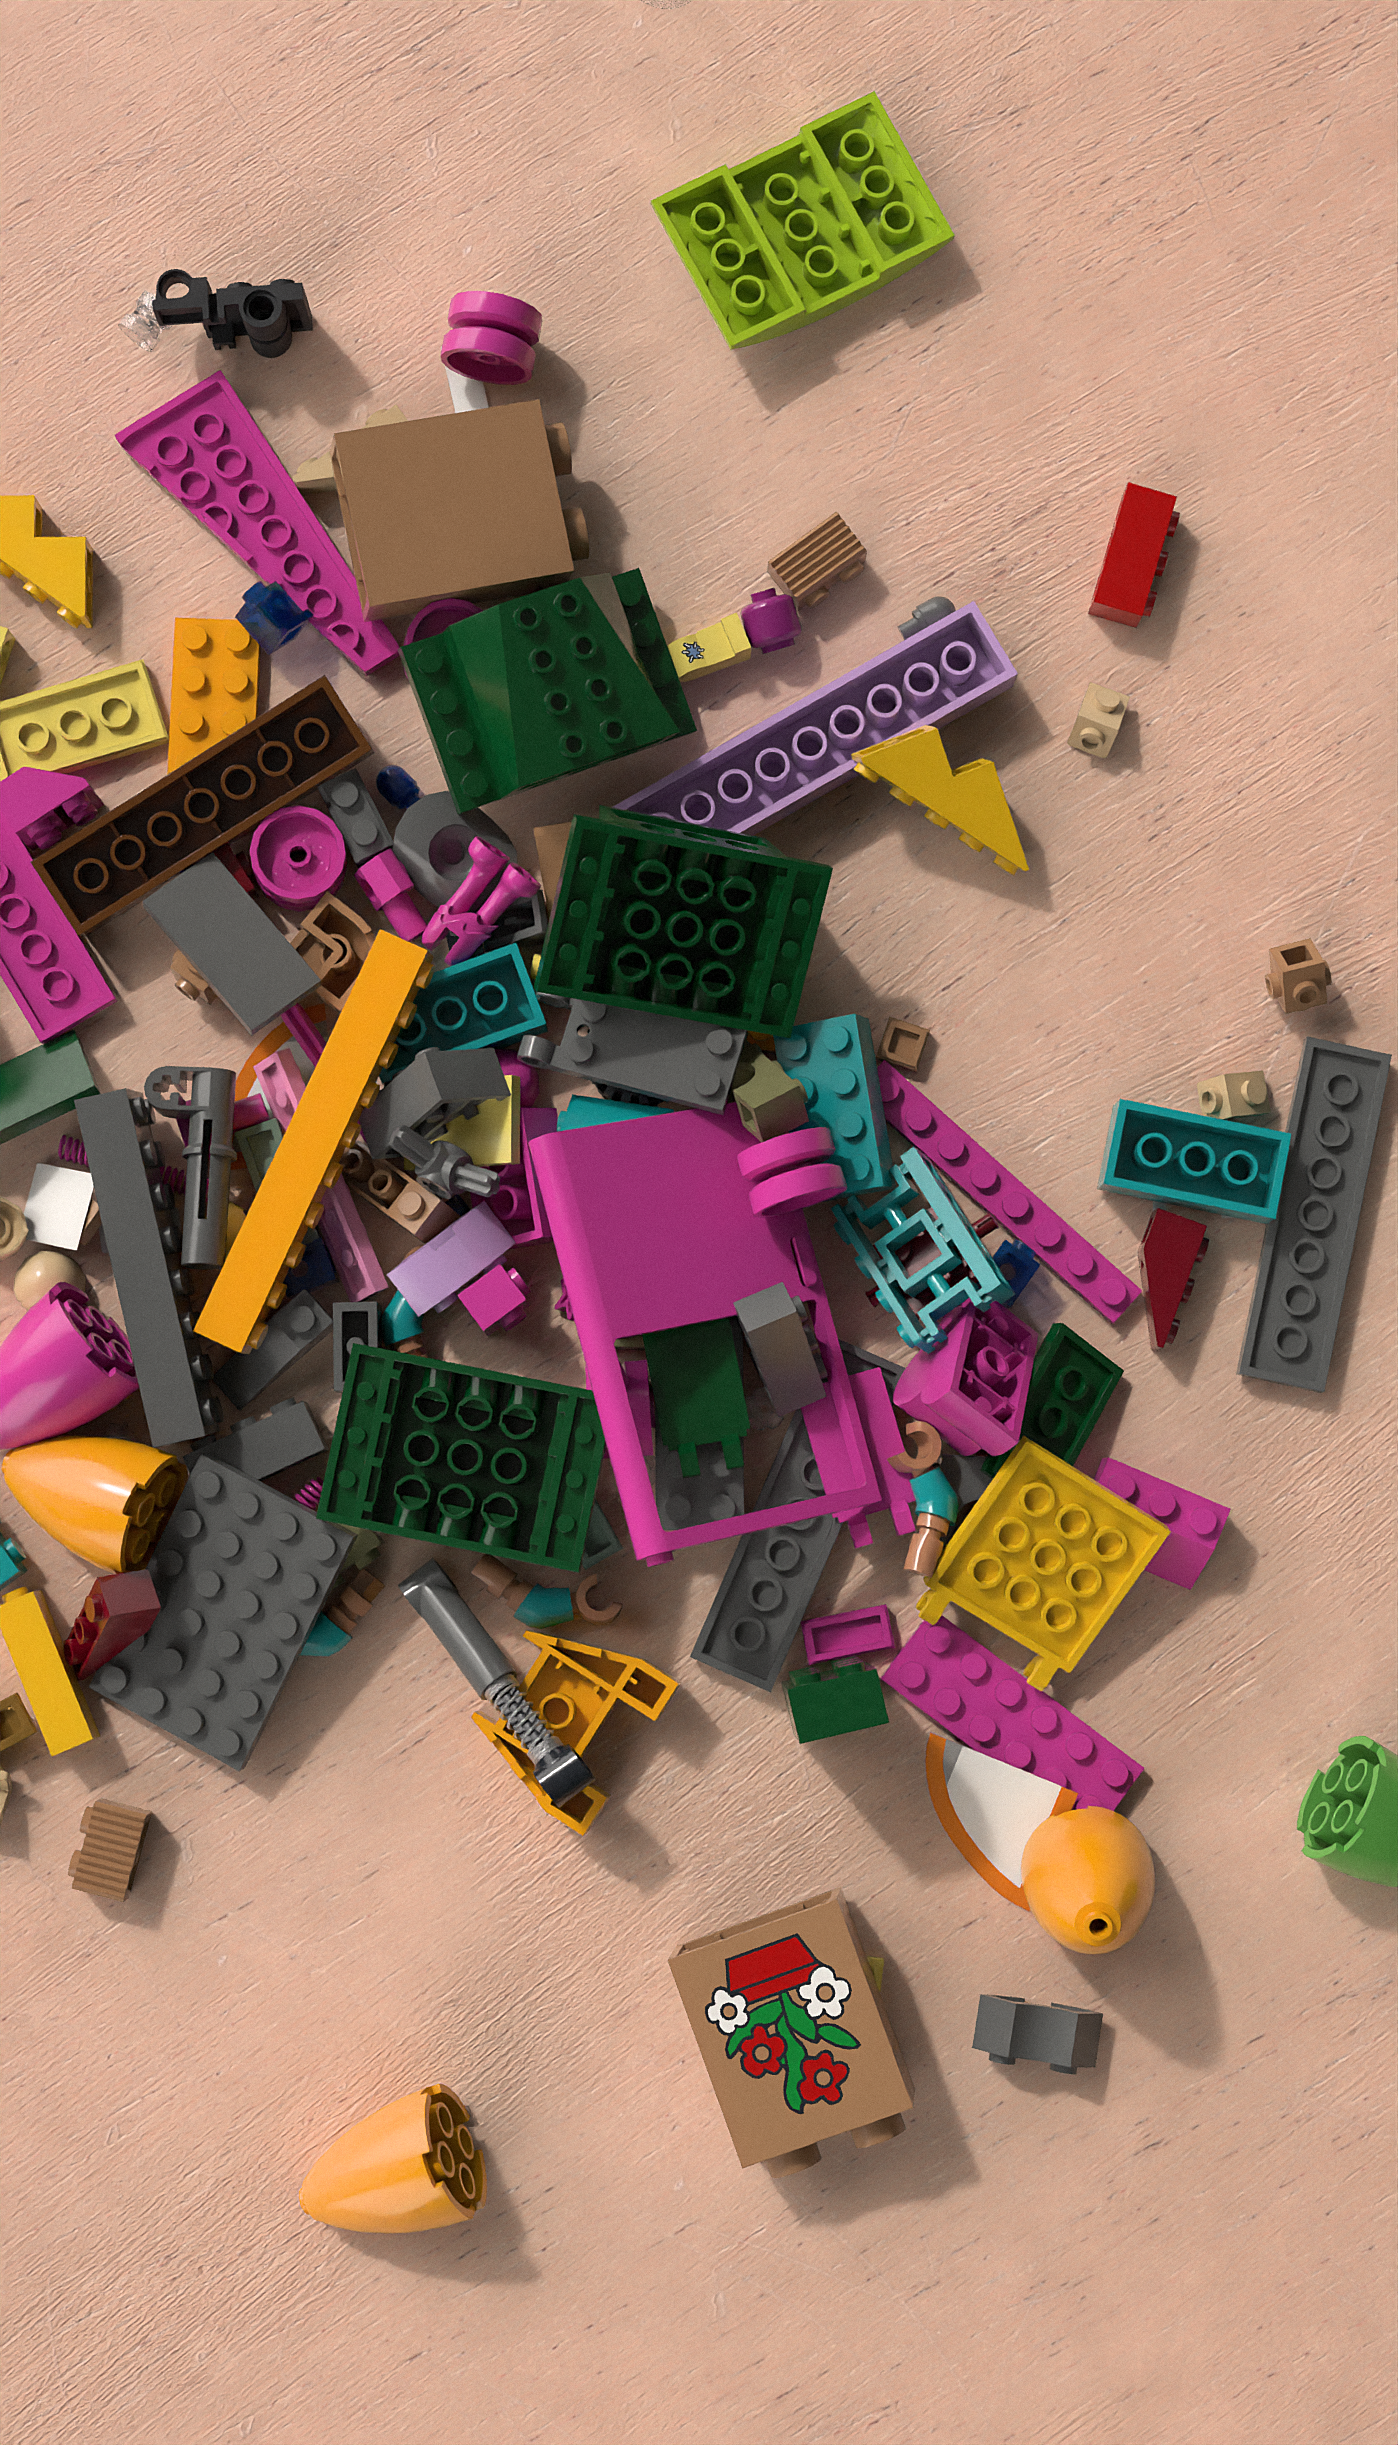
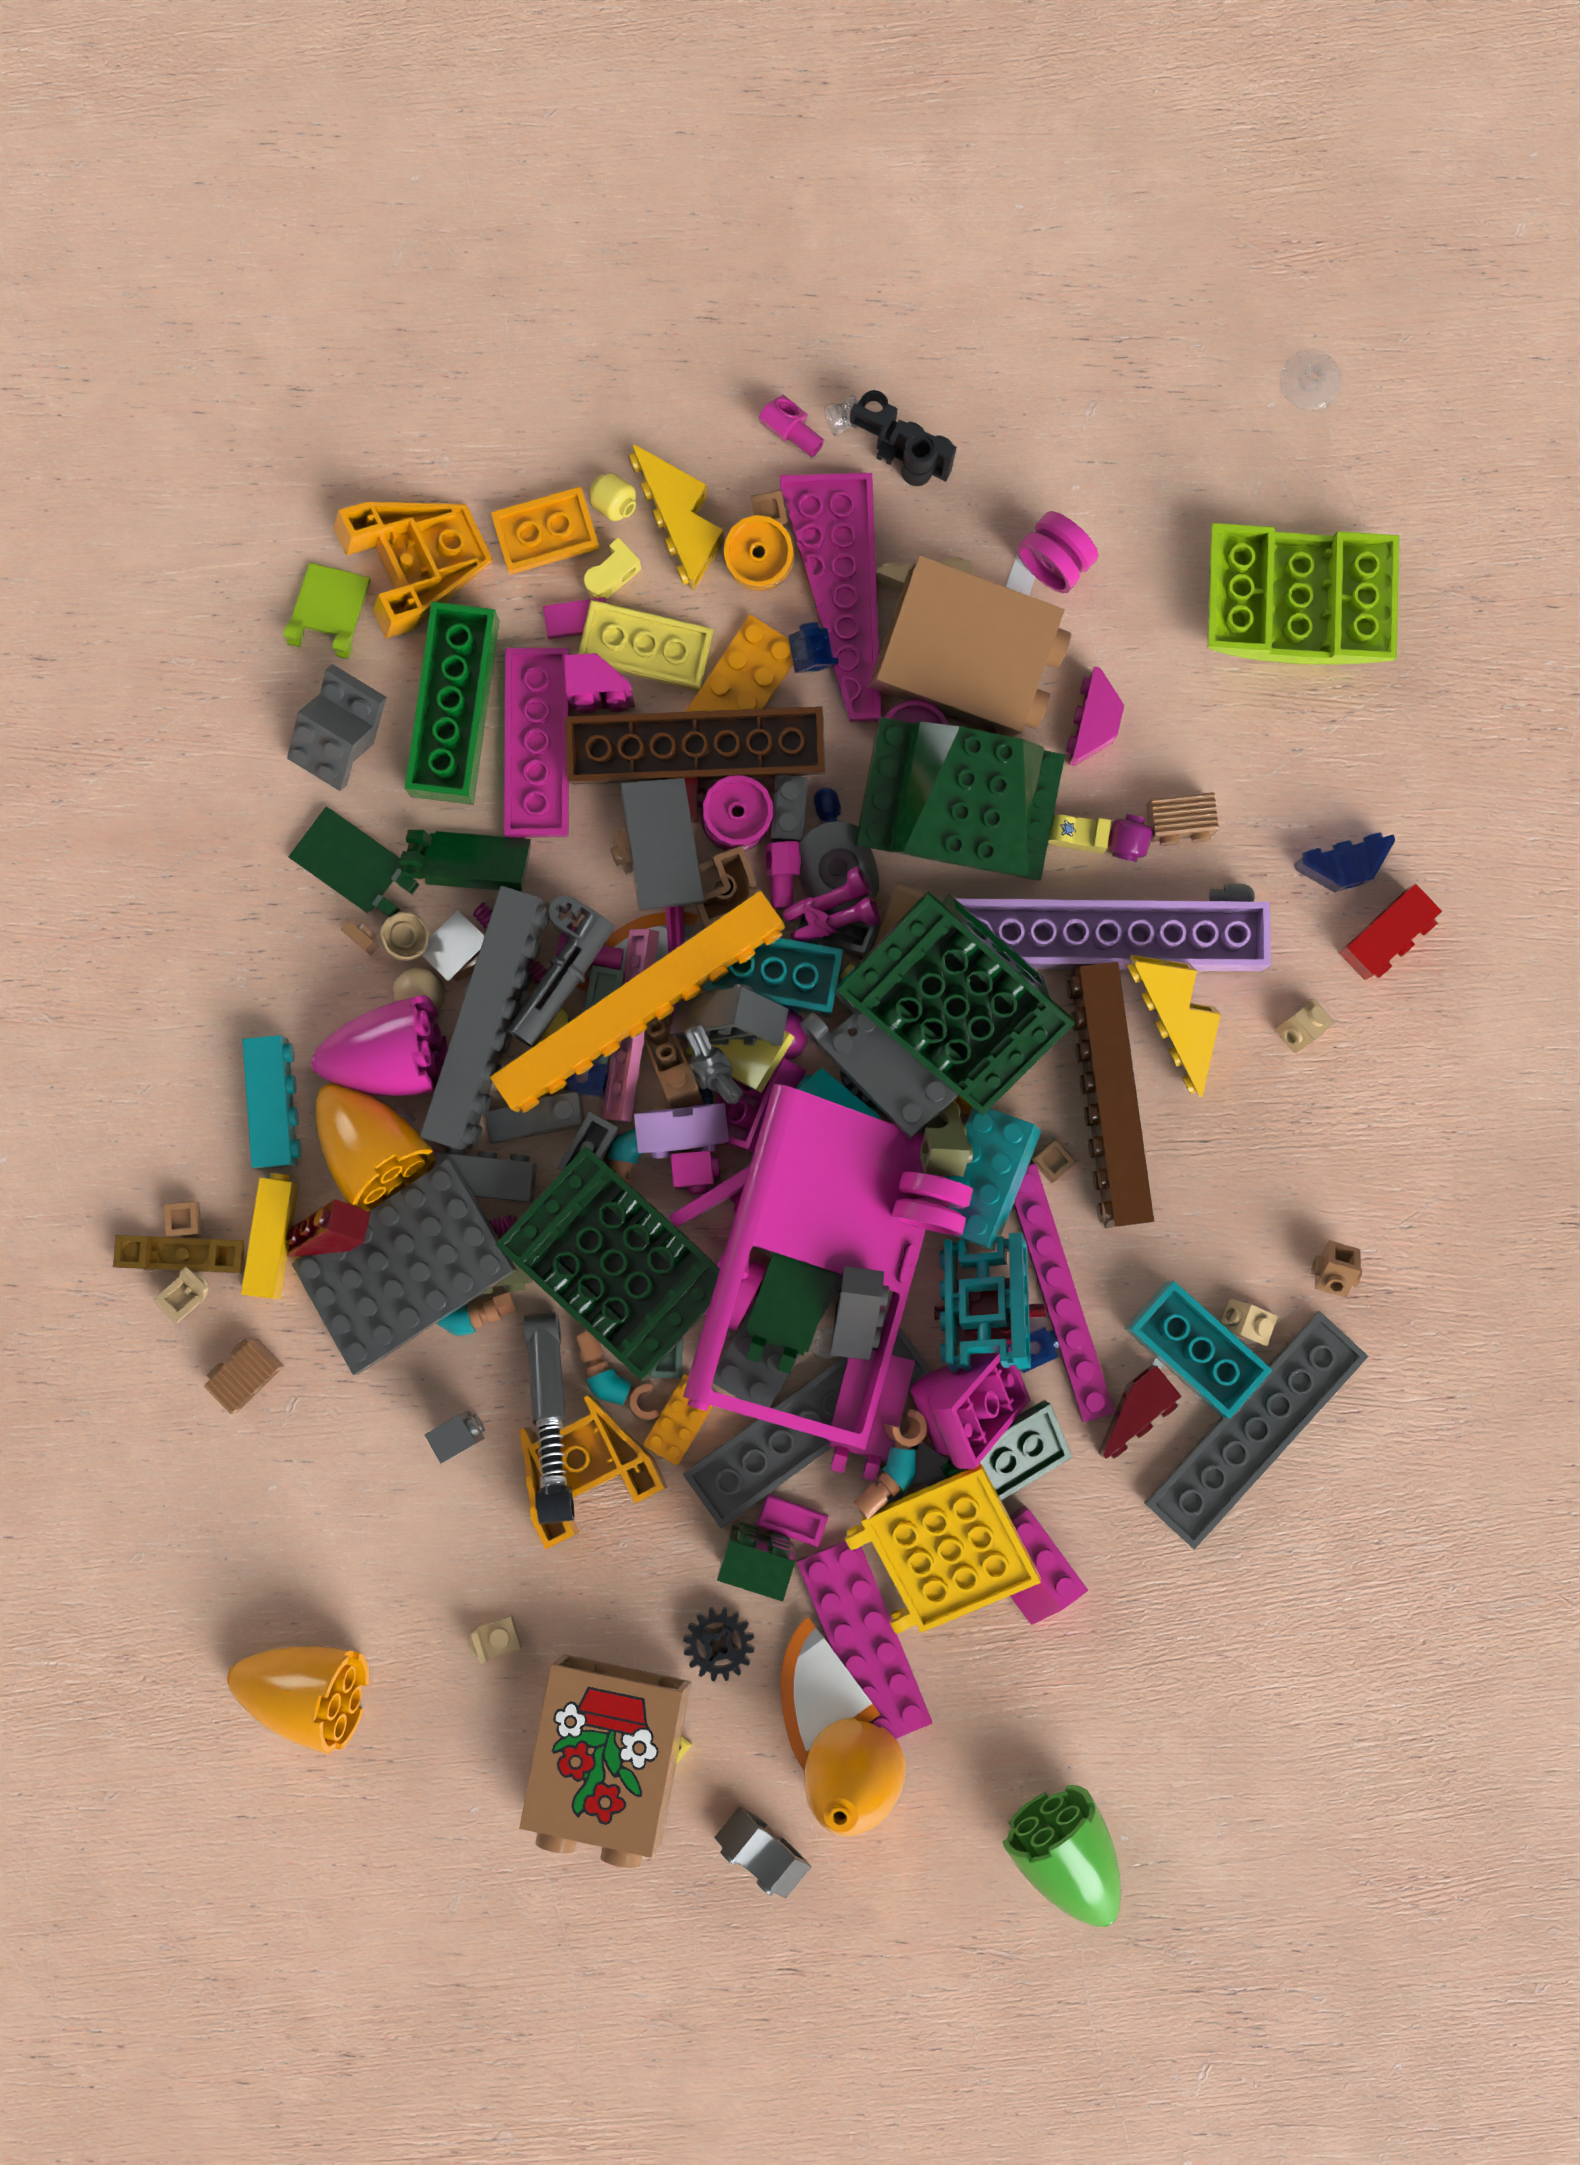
camera: 30 degrees right, 0 degrees up
(85, 368) = (787, 422): none -> dark pink piece
(121, 526) = (749, 536): none -> light orange wheel
(124, 480) = (770, 505): none -> medium nougat plate
(401, 1768) = (455, 1435): none -> dark grey brick
(534, 1319) = (710, 1199): none -> dark pink tile
(585, 1976) = (494, 1639): none -> tan bracket
(649, 1603) = (676, 1426): none -> light orange piece
(650, 505) = (1097, 718): none -> dark pink slope
(826, 1825) = (732, 1652): none -> black gear
(923, 930) = (1110, 1096): none -> reddish brown brick
(1036, 505) = (1346, 864): none -> clear blue slope

